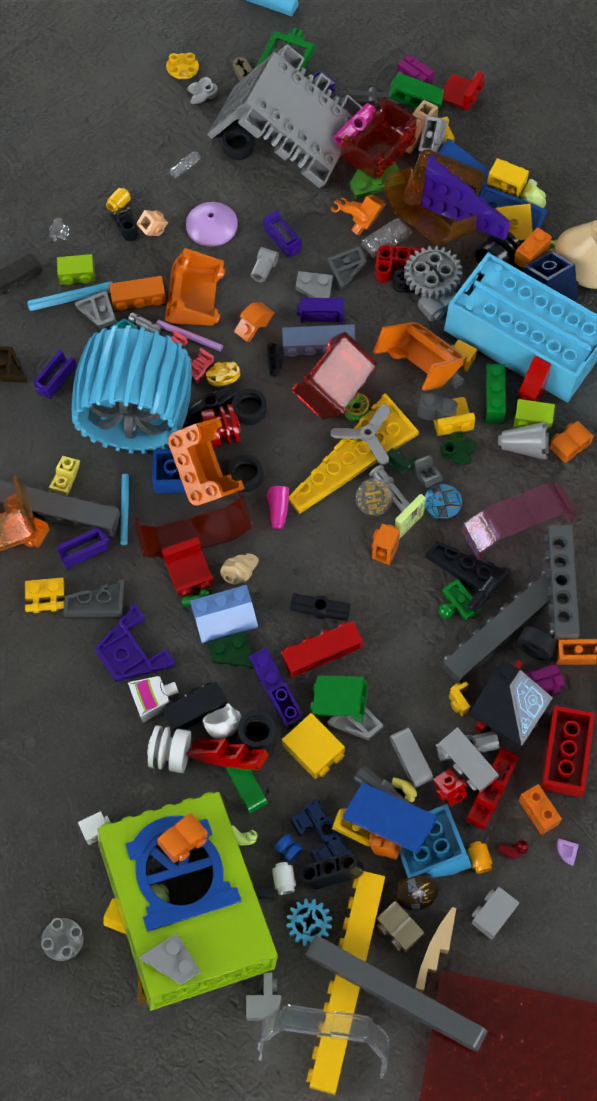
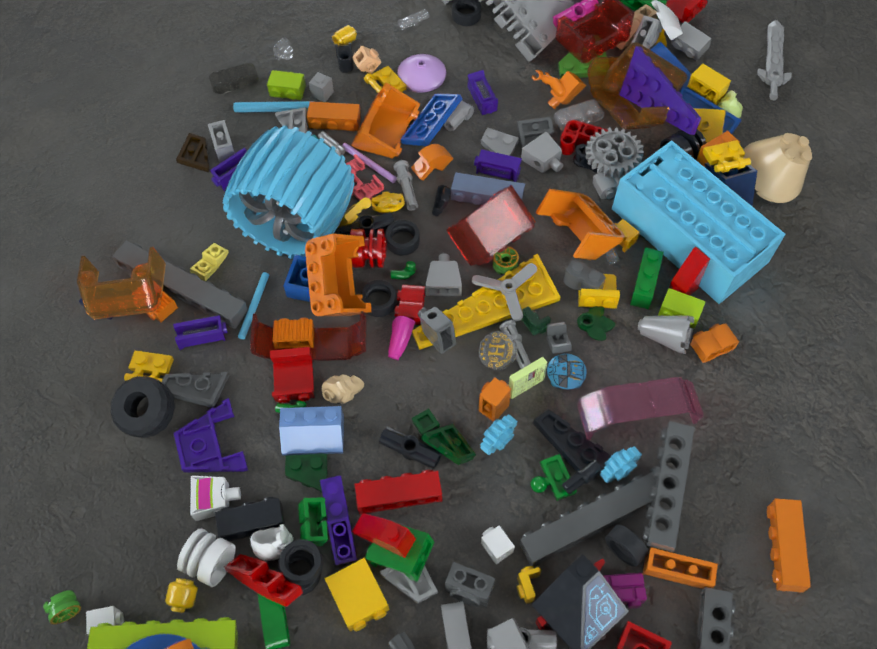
camera: 15 degrees right, 5 degrees down
(32, 347) = (221, 140): none -> light grey brick
(39, 631) = (126, 401): none -> black tyre
(52, 825) = (62, 607): none -> bright green wheel
(114, 264) = (321, 87): none -> light grey brick
(156, 787) = (181, 595): none -> yellow head
(176, 527) = (293, 333): none -> orange brick
(179, 239) = (385, 75): none -> yellow plate
(197, 389) = (352, 213): none -> yellow plate
(232, 345) = (404, 178): none -> light grey pin
(239, 275) = (431, 119): none -> blue tile
(248, 688) = (310, 513): none -> green piece
(263, 441) = (406, 273): none -> green arm
(278, 470) = (411, 302): none -> red brick
(302, 438) = (443, 278): none -> light grey torso
(314, 490) = (437, 329): none -> dark grey torso
(324, 687) = (385, 534): none -> red slope
(328, 580) = (425, 422): none -> dark green tile
(356, 594) = (450, 444): none -> dark green wing
(362, 287) = (543, 154): none -> light grey torso
(398, 575) = (498, 434): none -> medium azure gear
(410, 712) = (469, 585): none -> dark grey brick
(423, 672) = (497, 544): none -> white brick
(451, 114) = (668, 20): none -> white slope
(478, 130) = (692, 41): none -> light grey brick
(514, 574) = (620, 464): none -> medium azure gear
(541, 251) = (725, 152): none -> yellow plate
(566, 136) = (774, 61): none -> light grey sword

